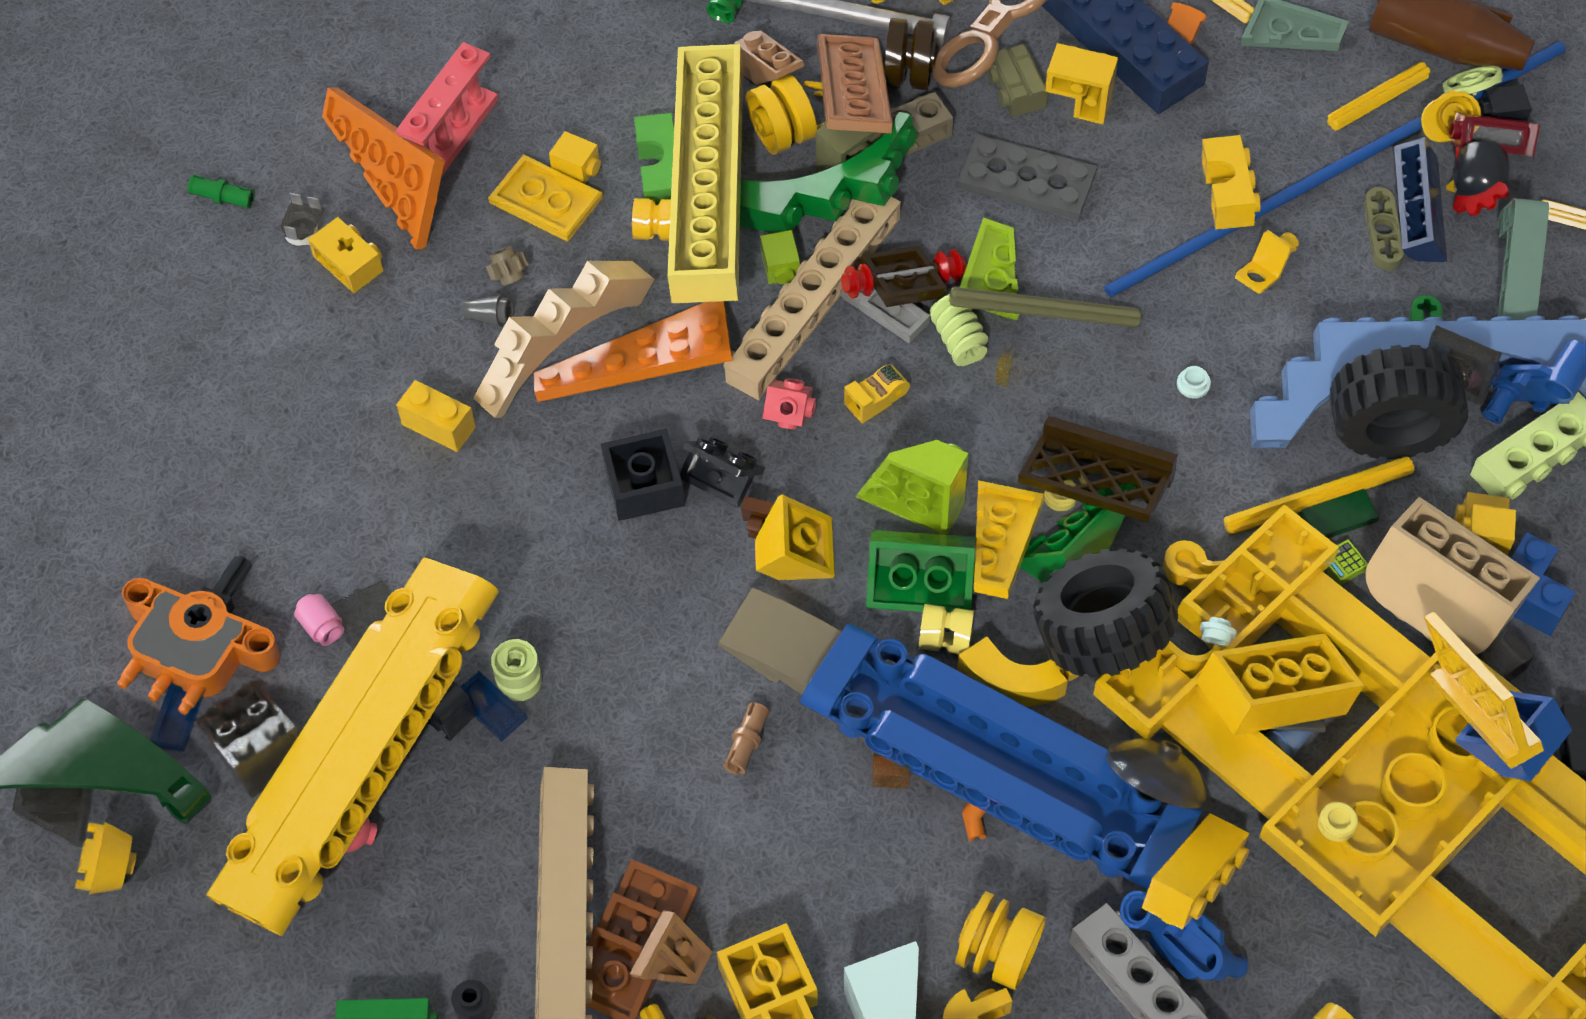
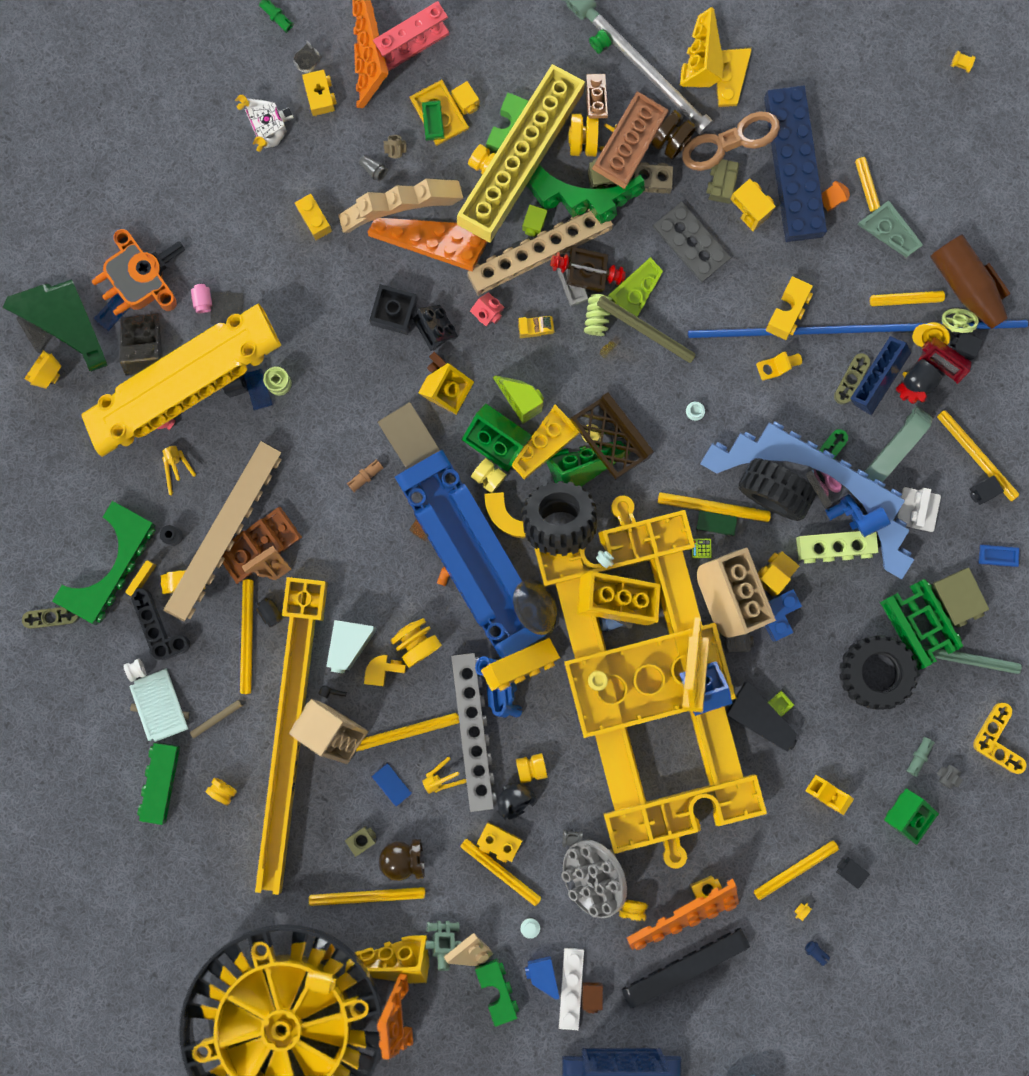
camera: 25 degrees right, 25 degrees up
(282, 327) = (265, 120): none -> torso
(404, 881) = (172, 457): none -> yellow plant
(544, 207) = (433, 120): none -> green tile

